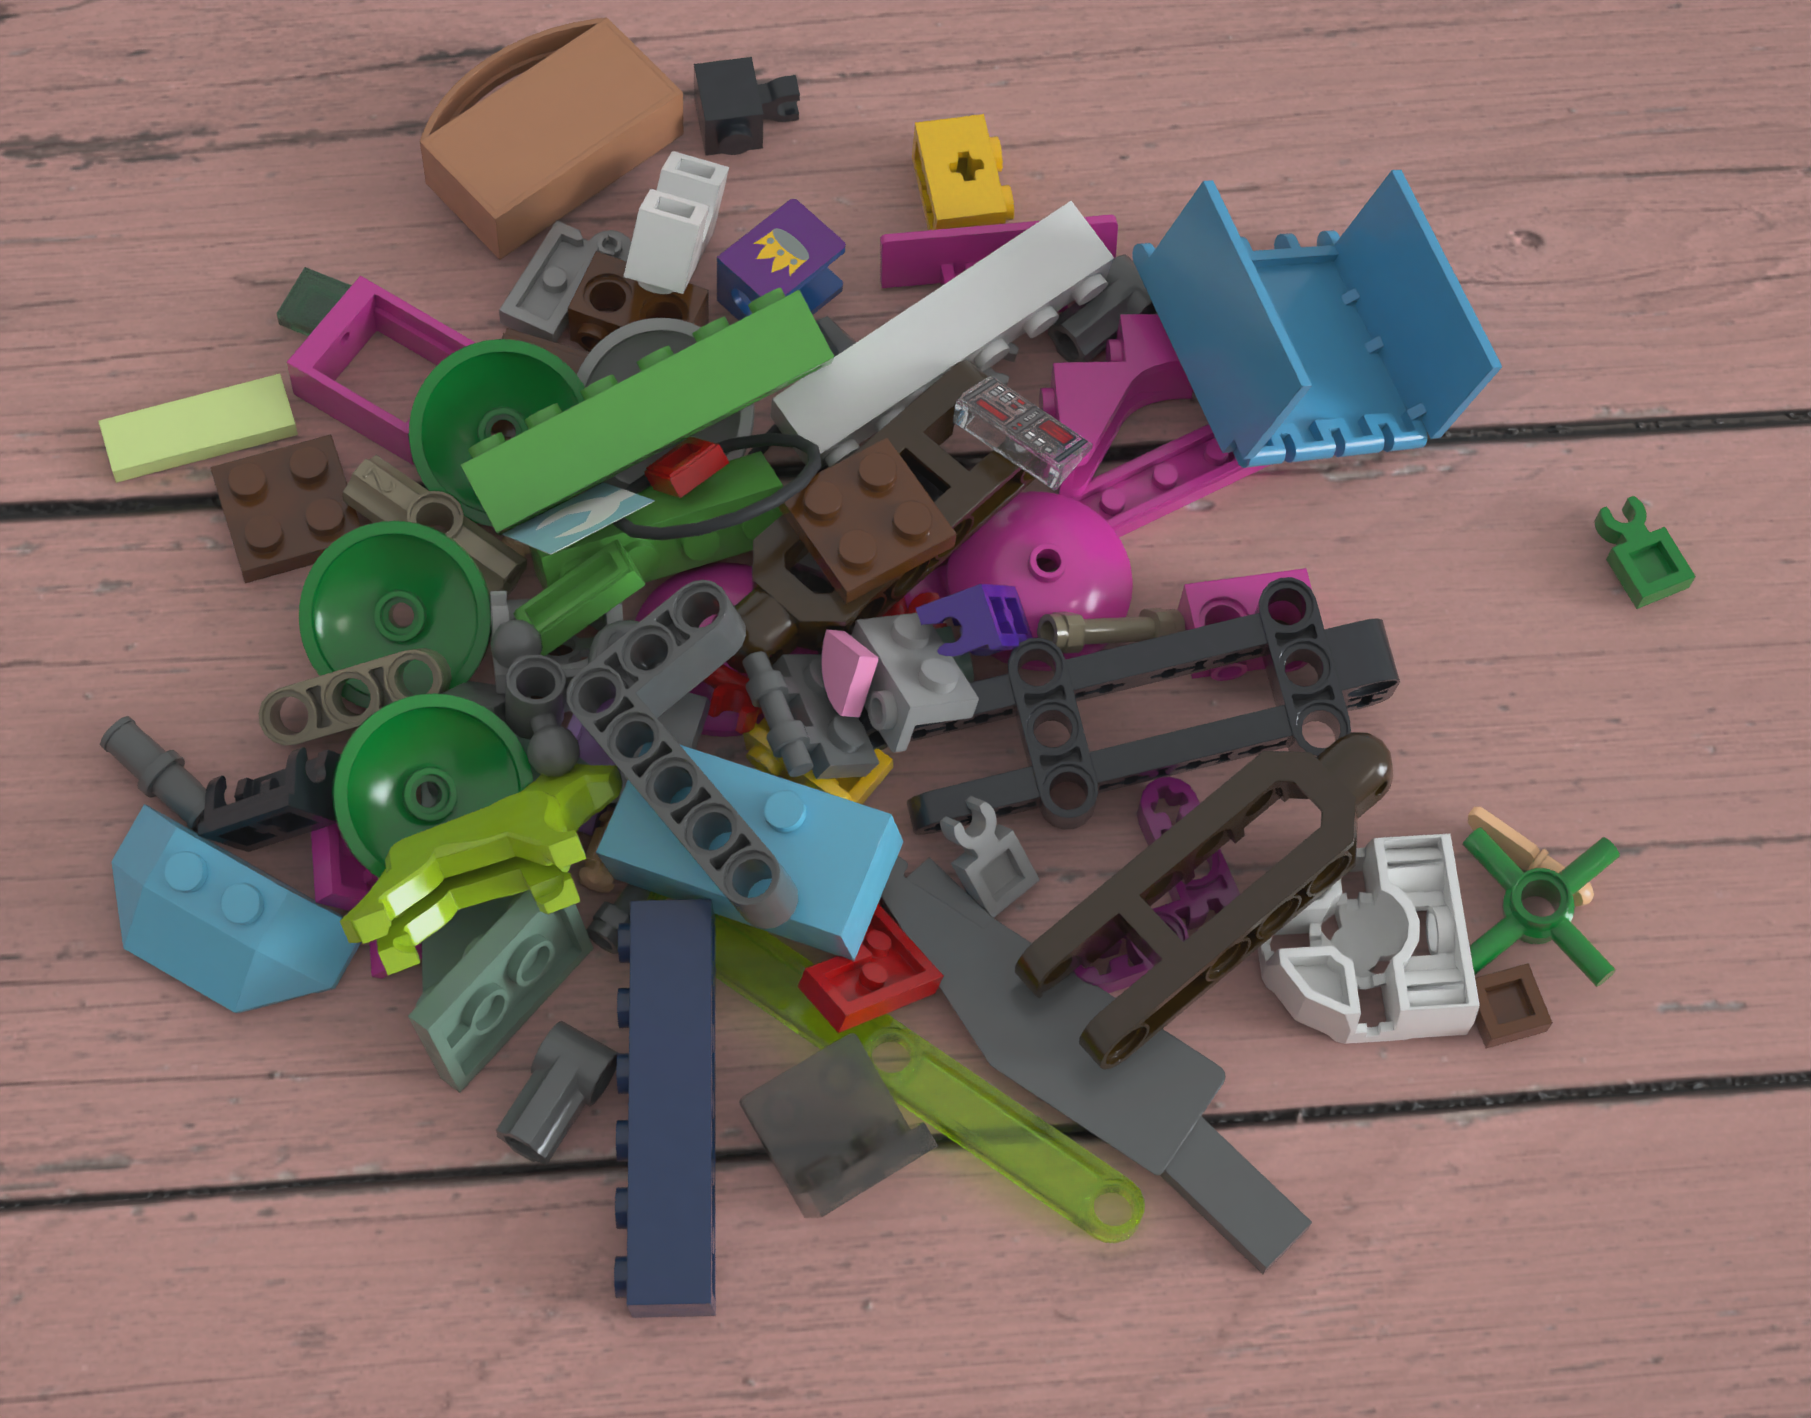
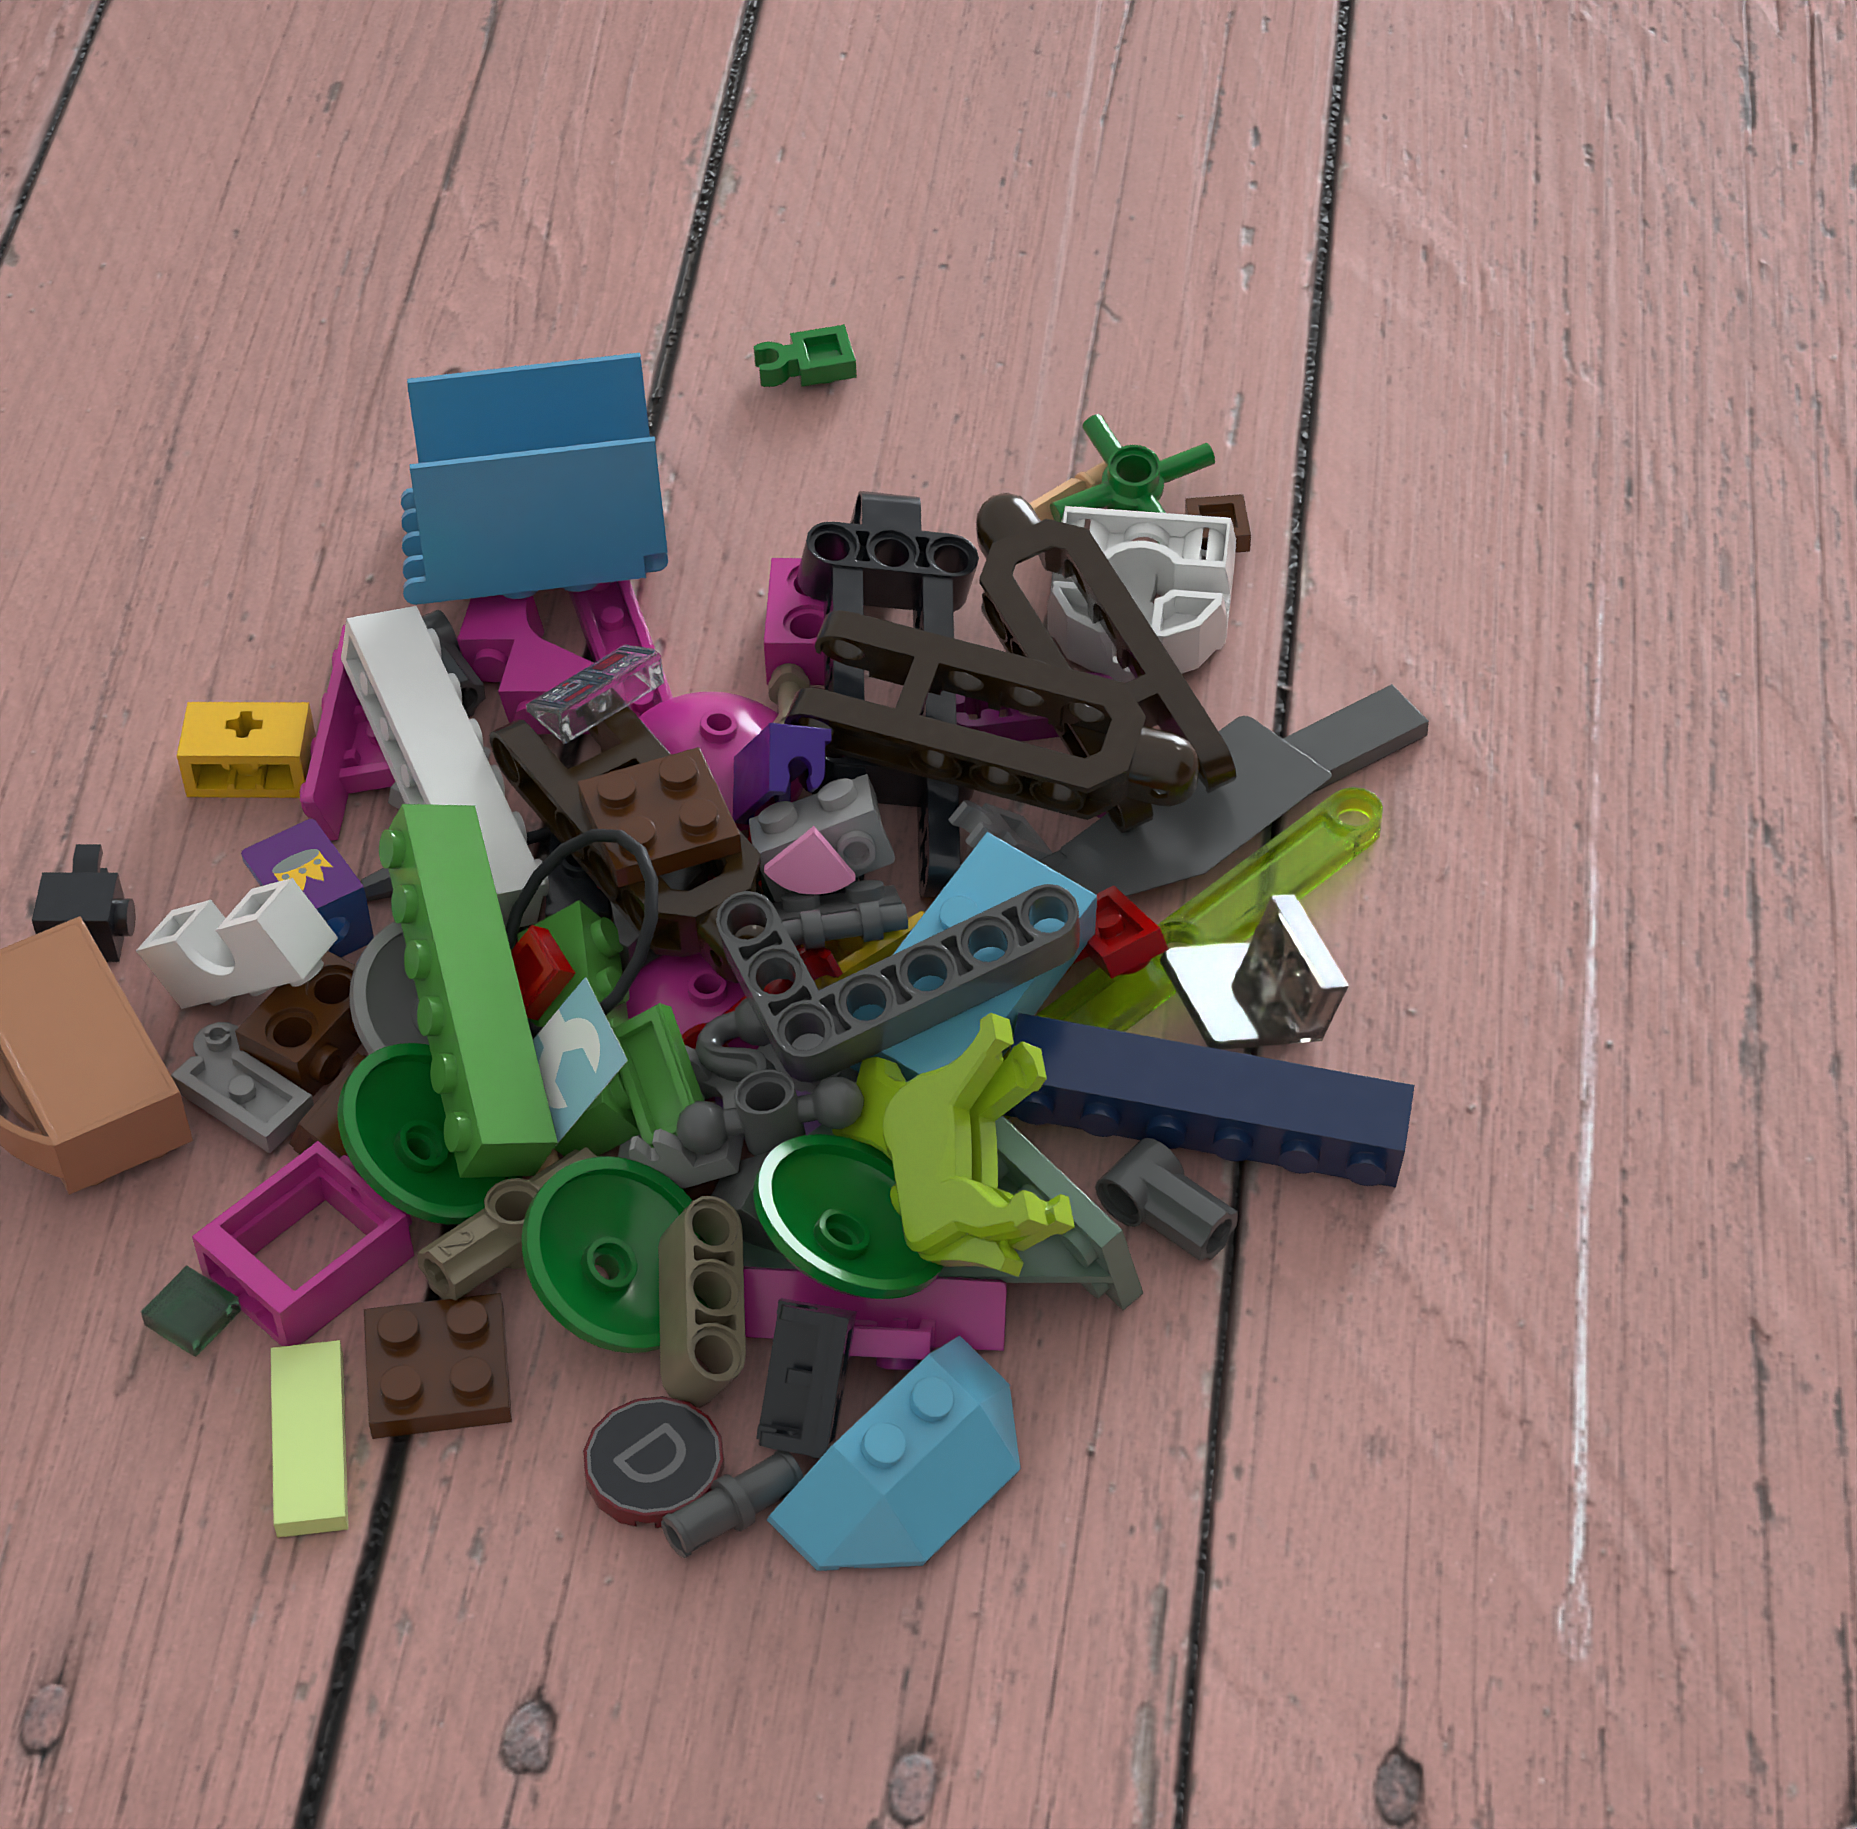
camera: 70 degrees left, 15 degrees down
(204, 701) = (651, 1459): none -> black tile
(1059, 941) = (1129, 764): none -> dark brown piece

